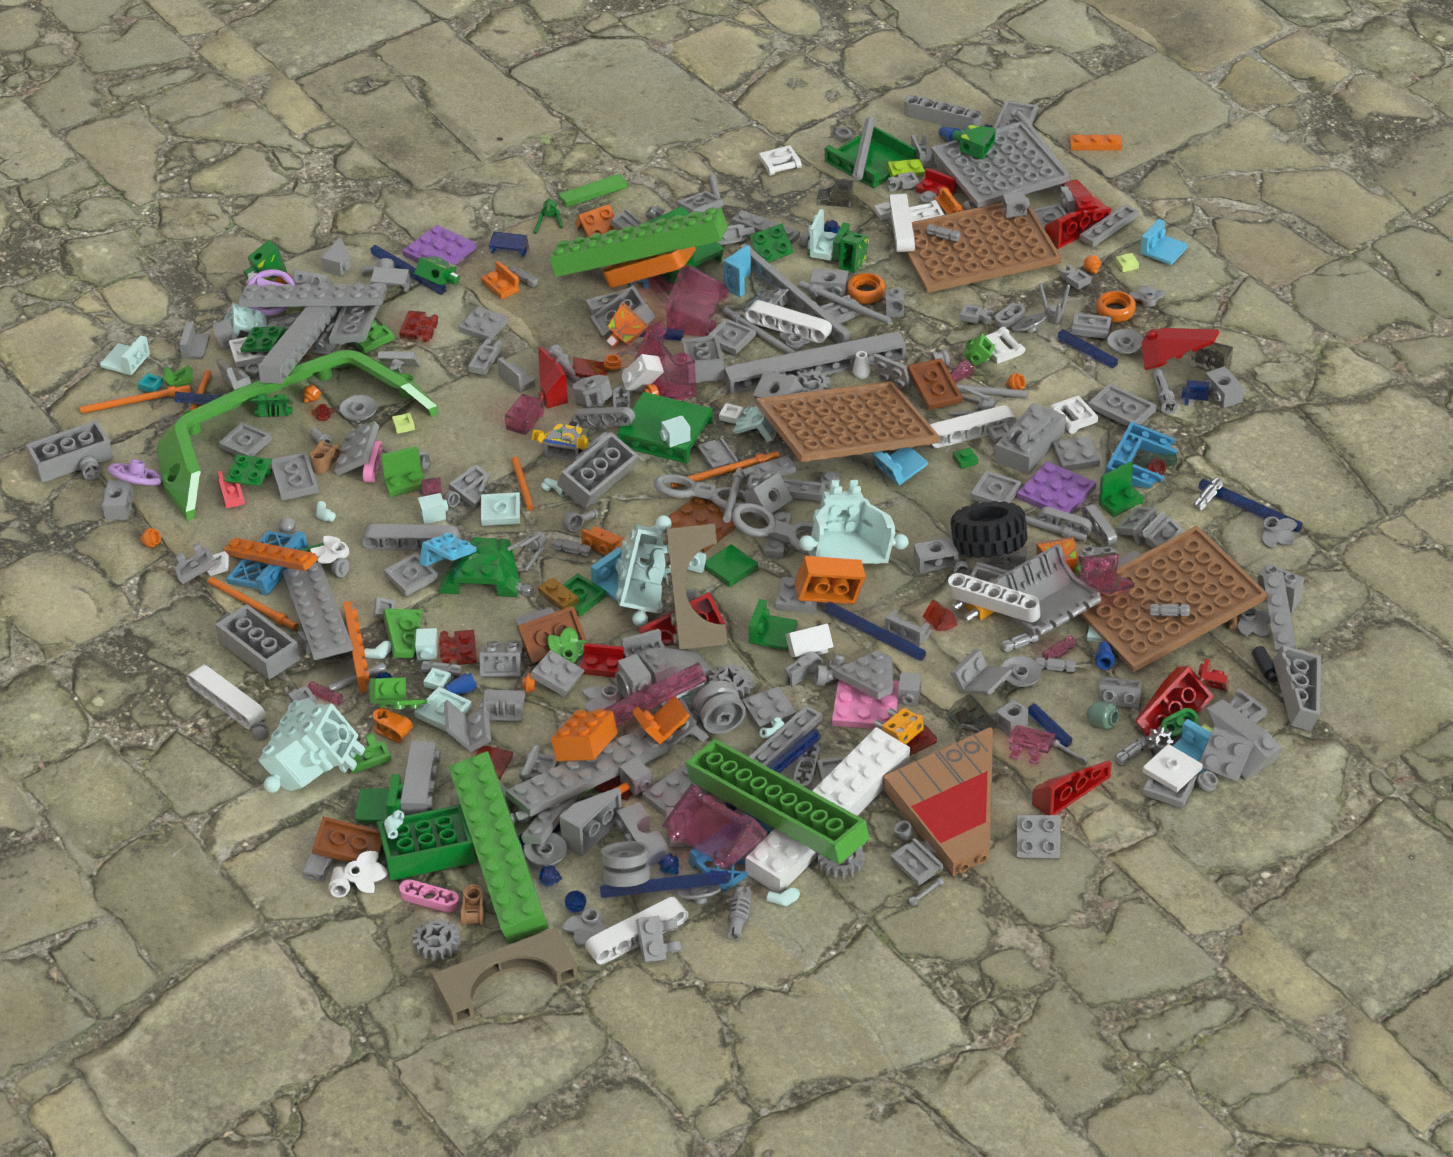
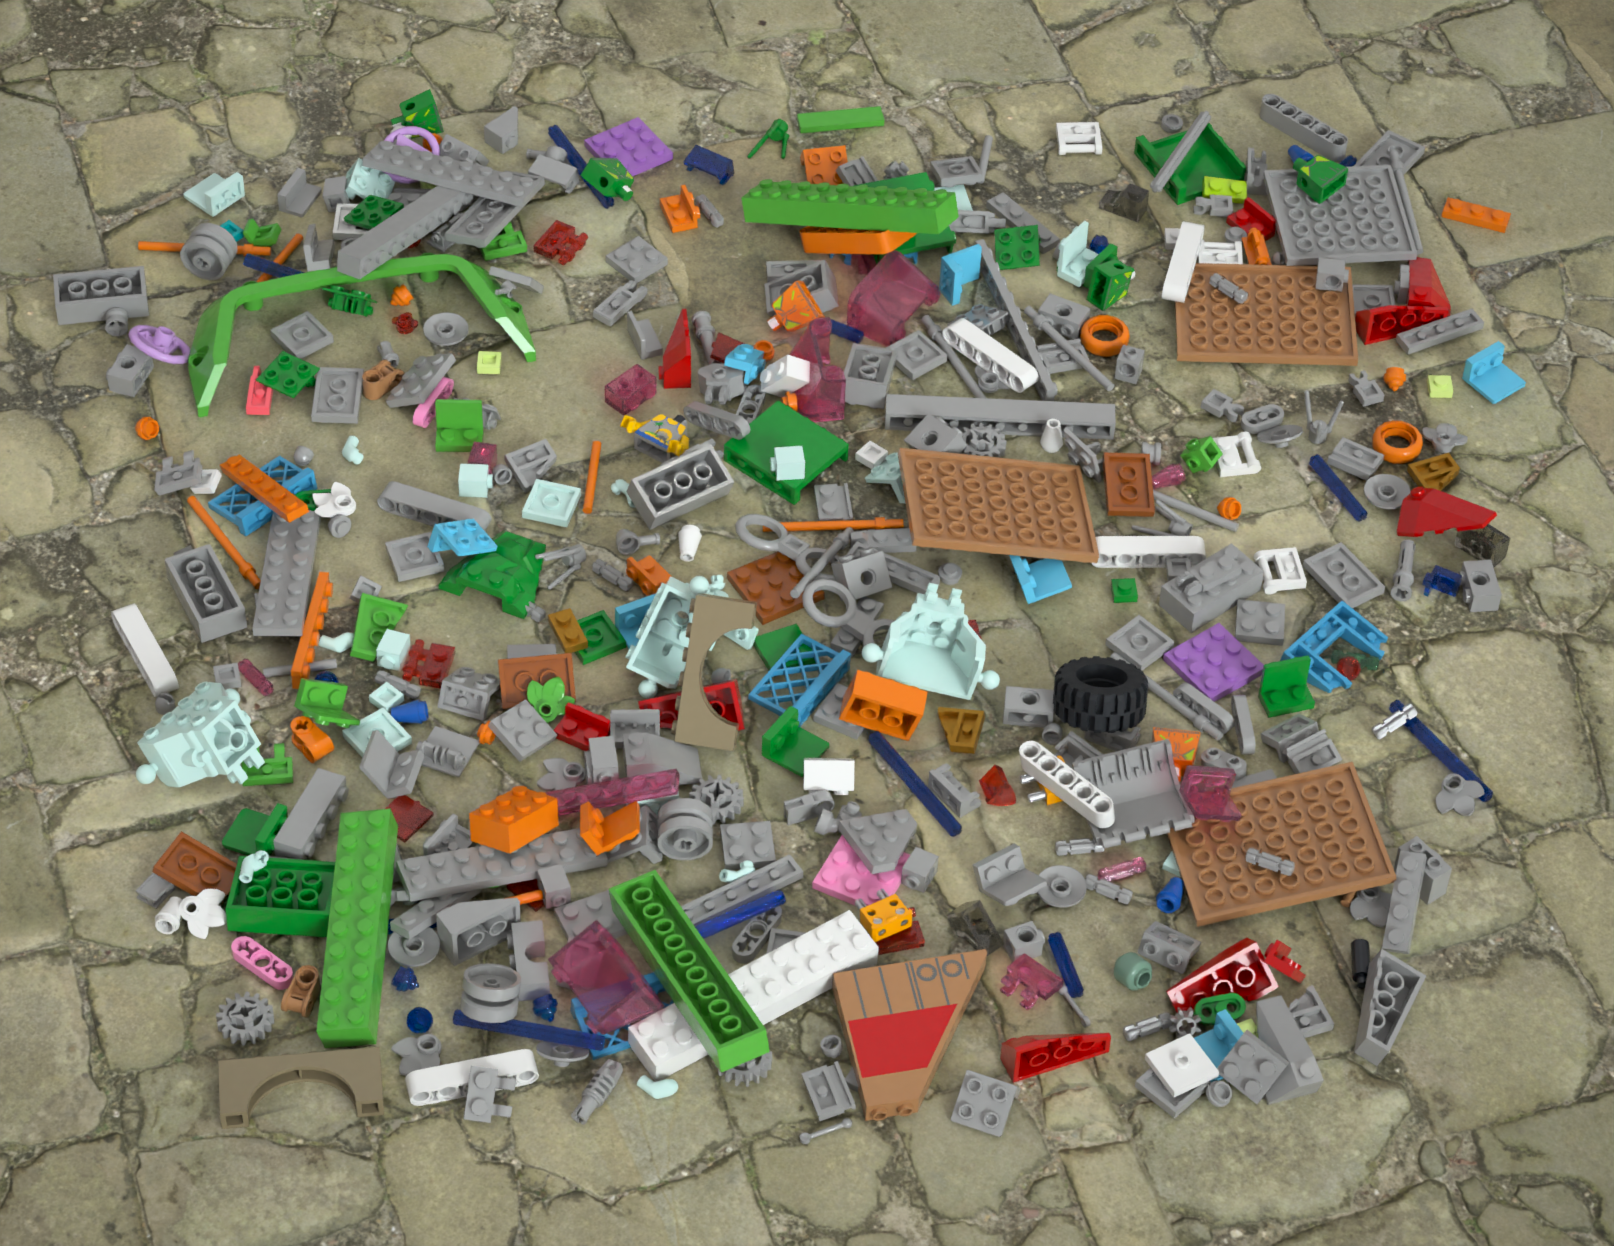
camera: 15 degrees right, 5 degrees up
(143, 398) = (208, 251): none -> light grey wheel
(606, 368) = (746, 359): none -> medium azure bracket
(620, 507) = (688, 542): none -> white cone
(770, 582) = (819, 686): none -> dark azure fence
(891, 583) = (961, 728): none -> pearl gold wing
(1153, 318) = (1434, 471): none -> pearl gold wing

